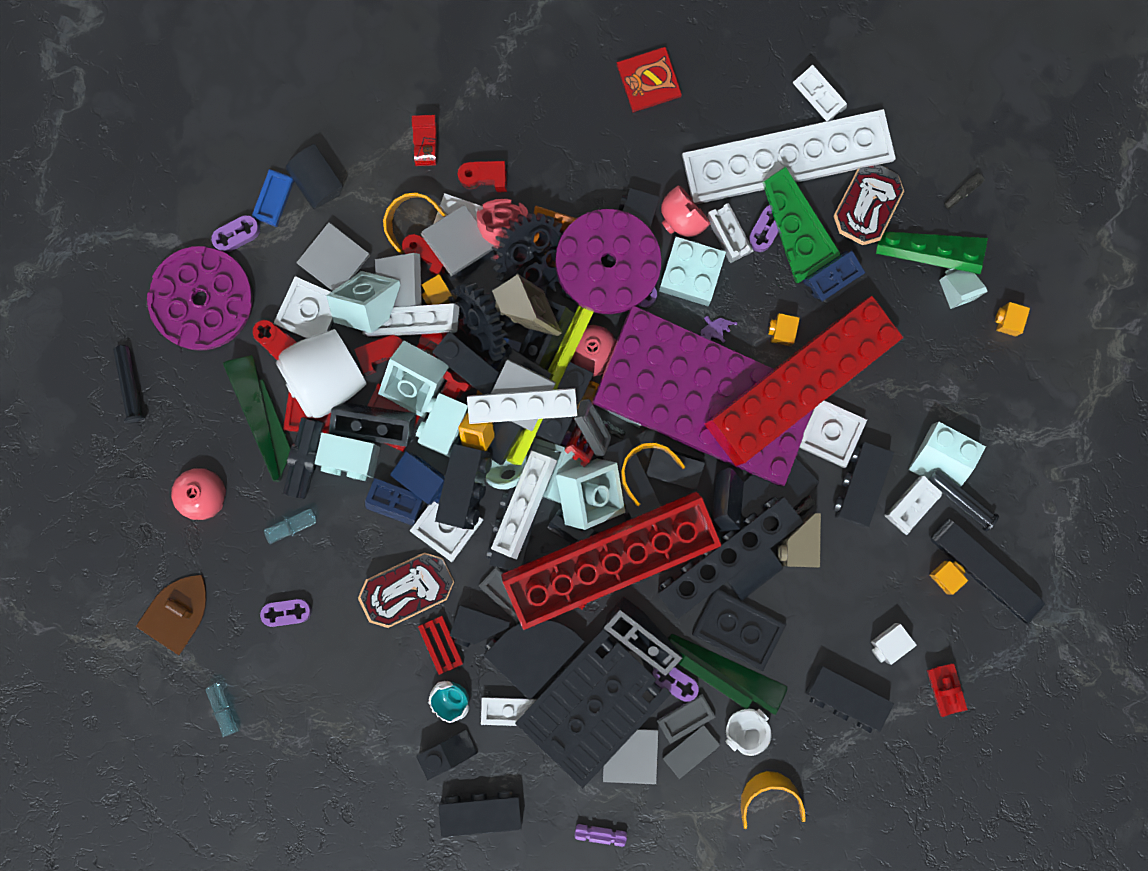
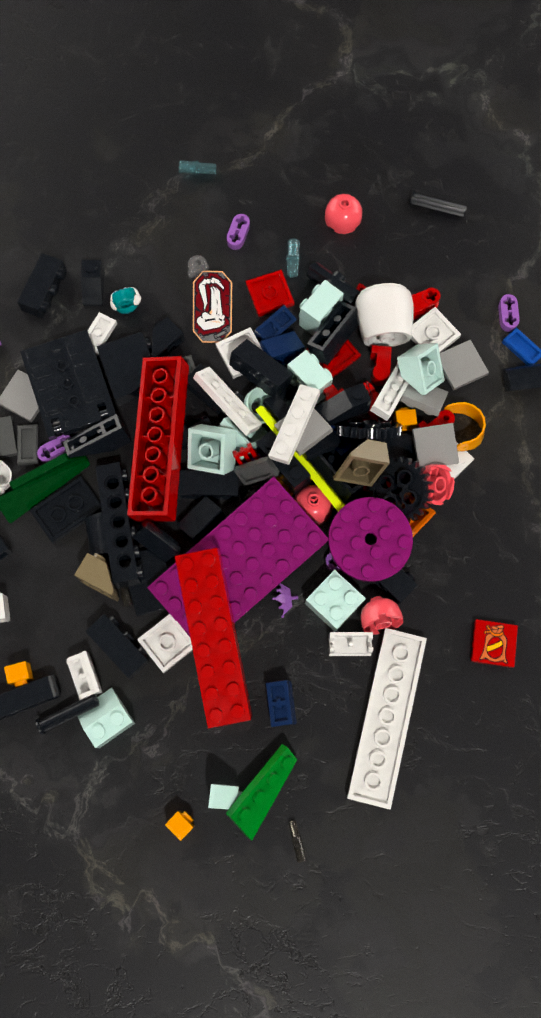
camera: 110 degrees right, 10 degrees down
(173, 293) = (476, 252): magenta plate -> none
(176, 613) = (273, 170): reddish brown shield -> none
(260, 414) = (378, 270): dark green wedge -> none
(349, 532) = (269, 293): none -> red tile
(366, 629) = (196, 266): none -> clear brick
(413, 378) = (353, 369): light aqua brick -> none
(425, 140) = (518, 463): red leg -> none
(426, 638) = (166, 311): red tile -> none
(476, 435) = (289, 391): light orange plate -> none
(484, 173) = (478, 486): red leg -> none
(637, 449) = (214, 475): light orange piece -> none
(759, 227) = (344, 670): medium lavender beam -> none
(783, 329) = (259, 646): light orange plate -> none
(801, 232) = (325, 696): green wing -> none
(820, 93) = (425, 765): white hinge -> none
(868, 204) = (322, 758): shield -> none

